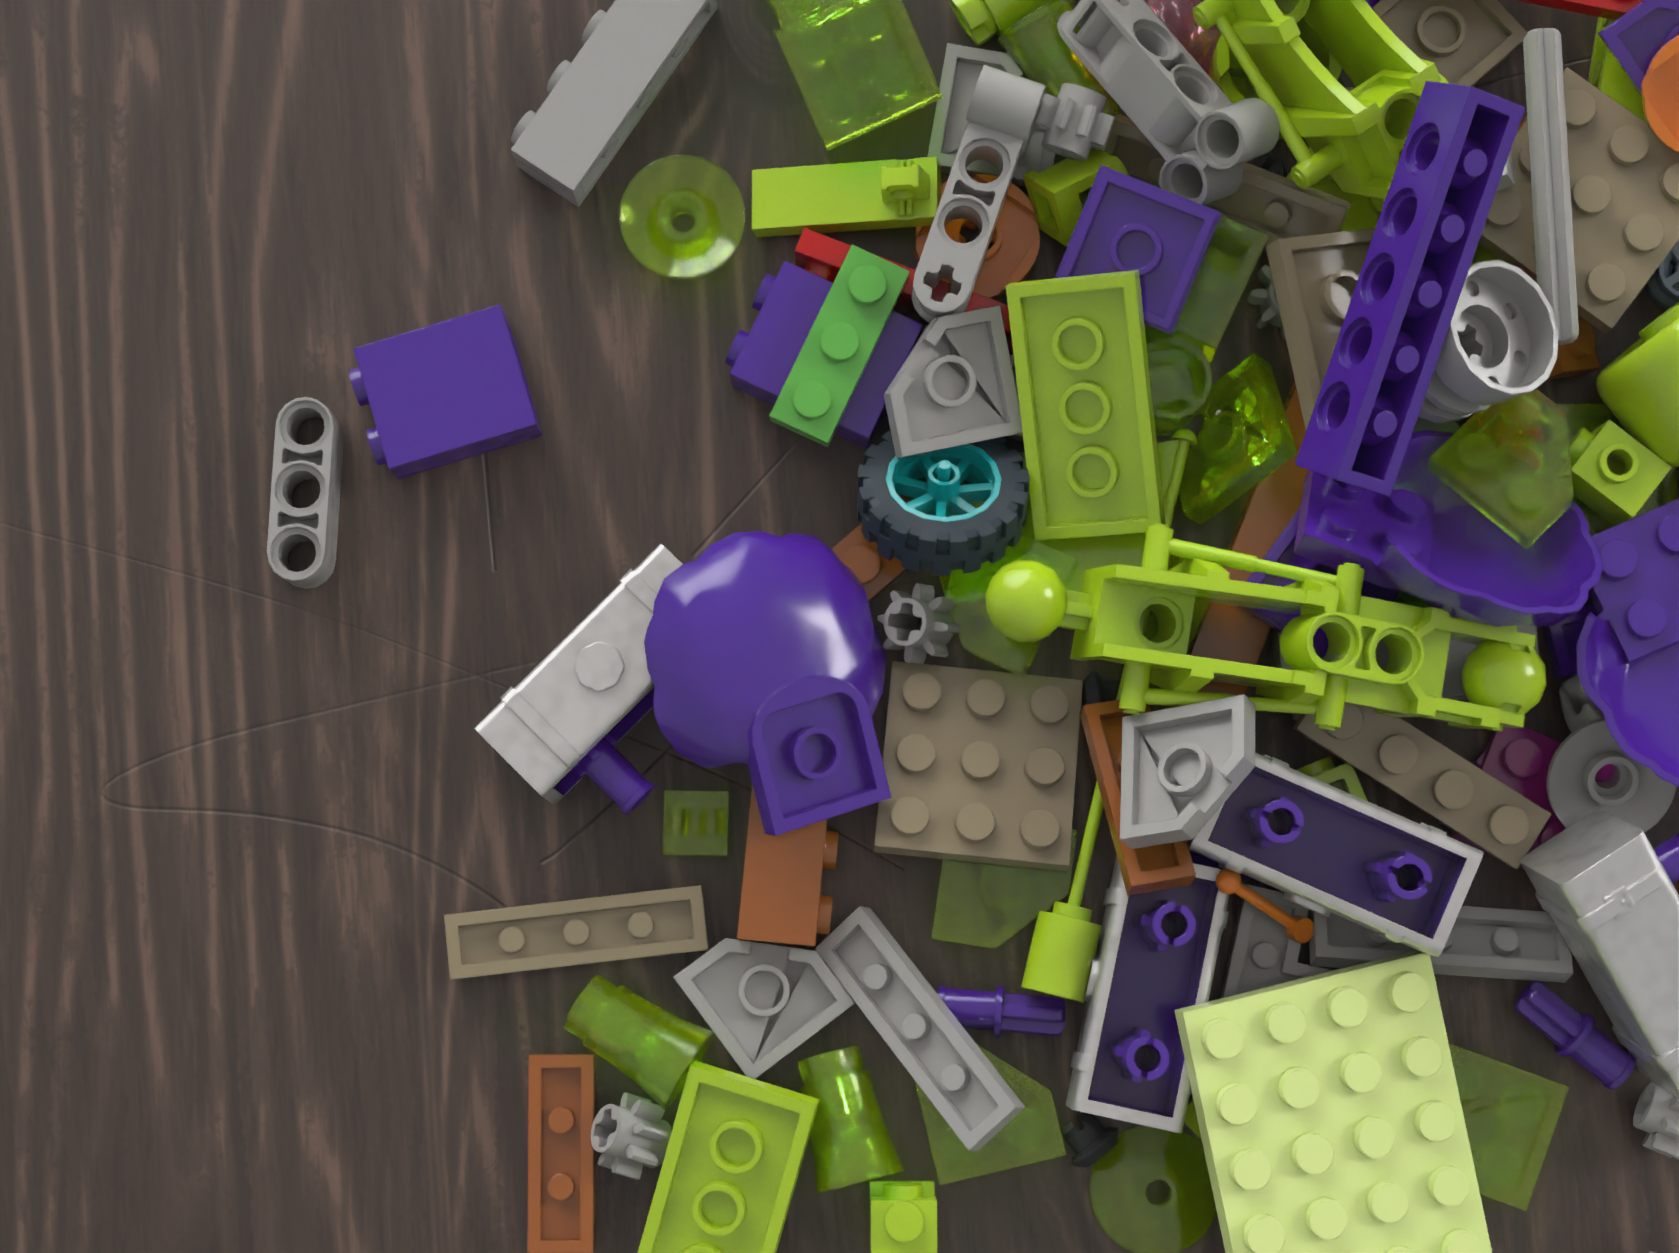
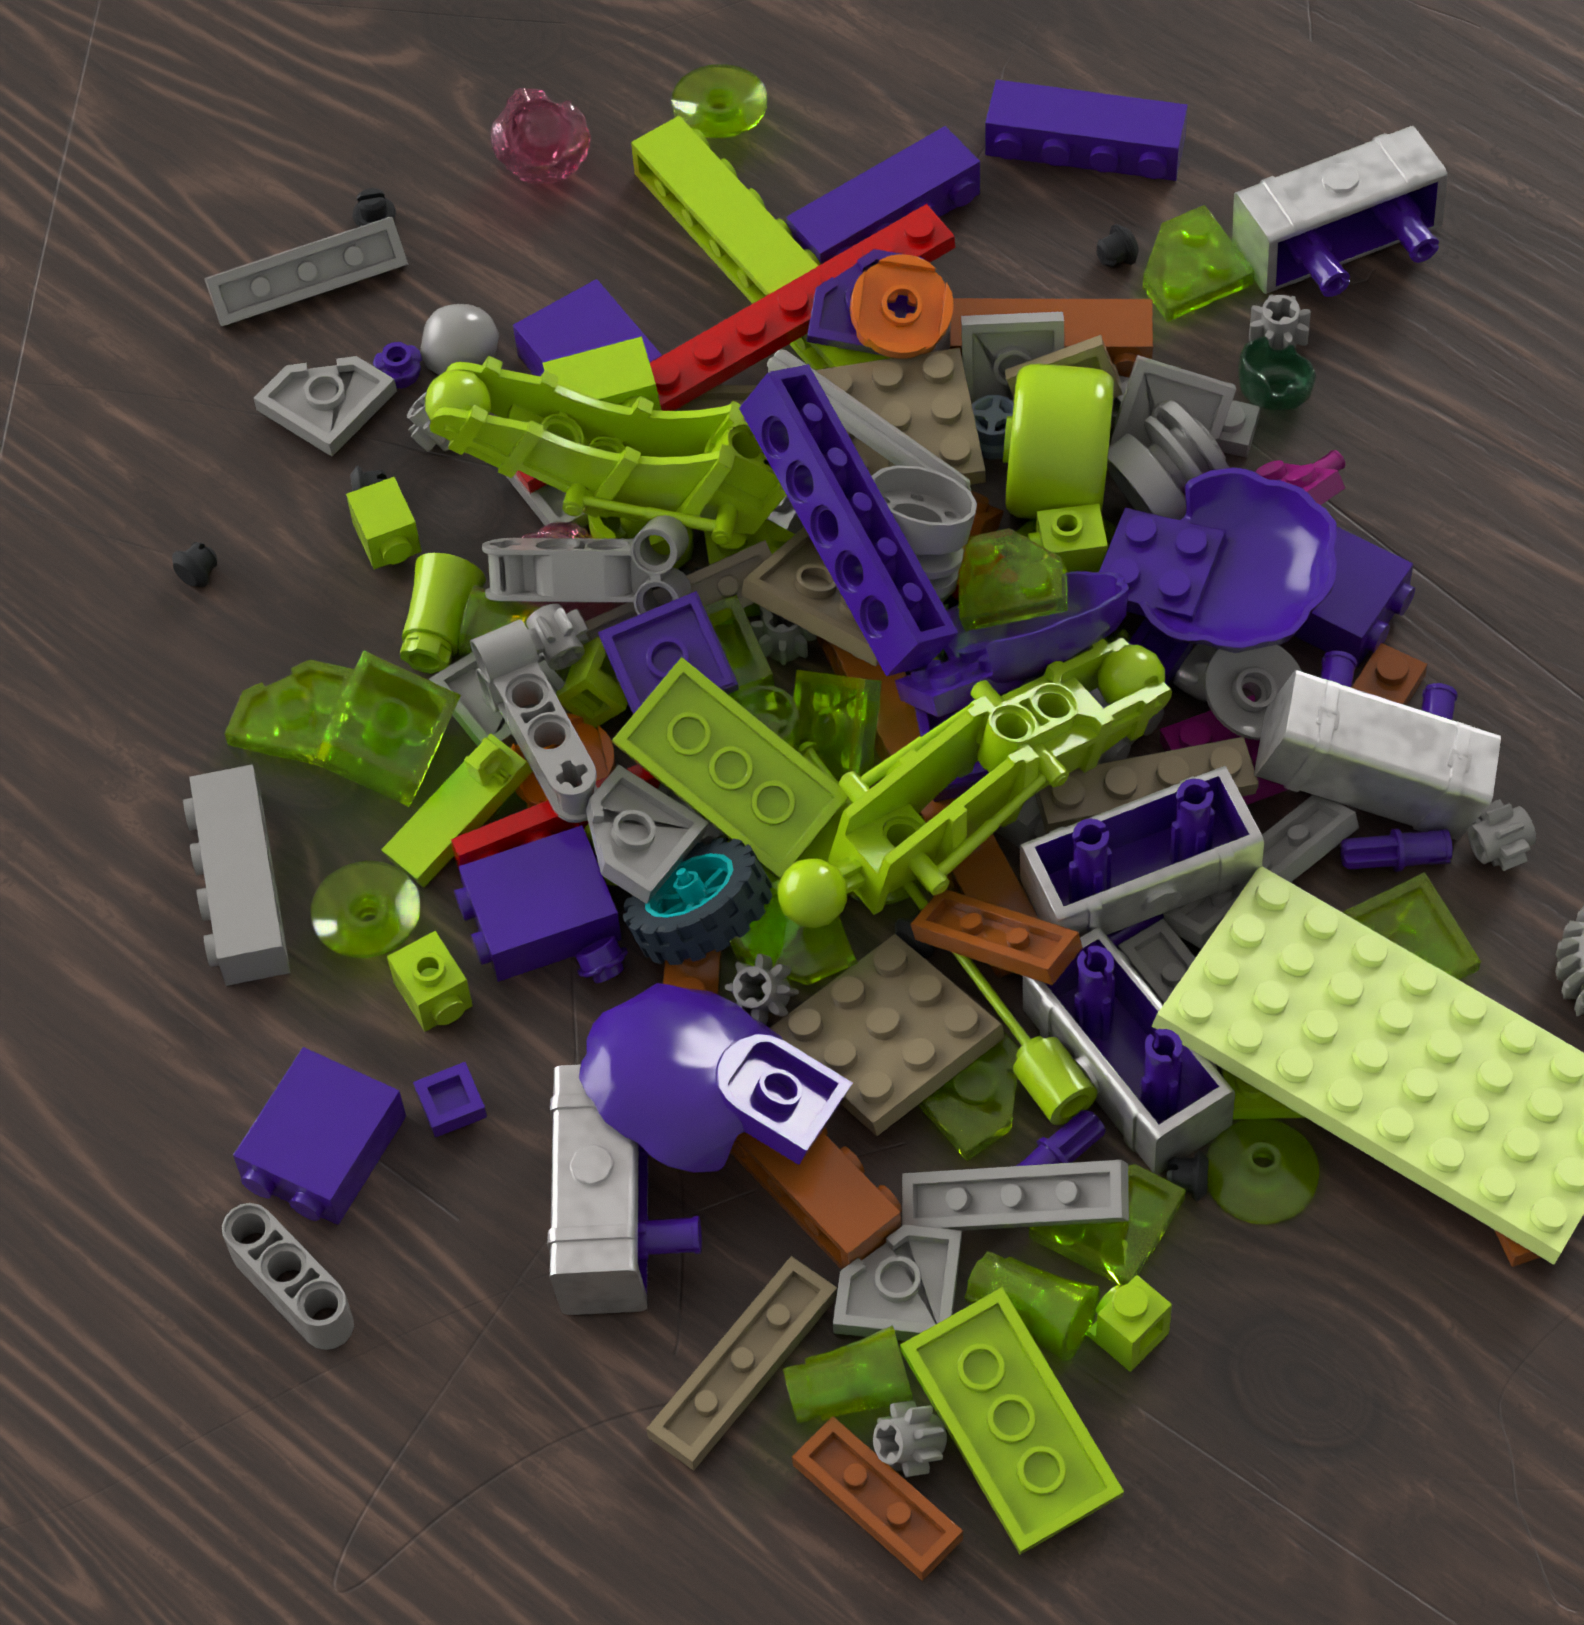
camera: 40 degrees left, 25 degrees down
(581, 462) = (450, 1099): none -> dark purple plate
(667, 340) = (430, 981): none -> lime brick
(696, 823) = (748, 1234): clear neon green tile -> none
(824, 464) = (601, 959): none -> dark purple plate
(839, 345) = (545, 877): bright green plate -> none
(1182, 767) = (1004, 879): light grey plate -> none
(1297, 927) = (1174, 934): orange hinge -> none

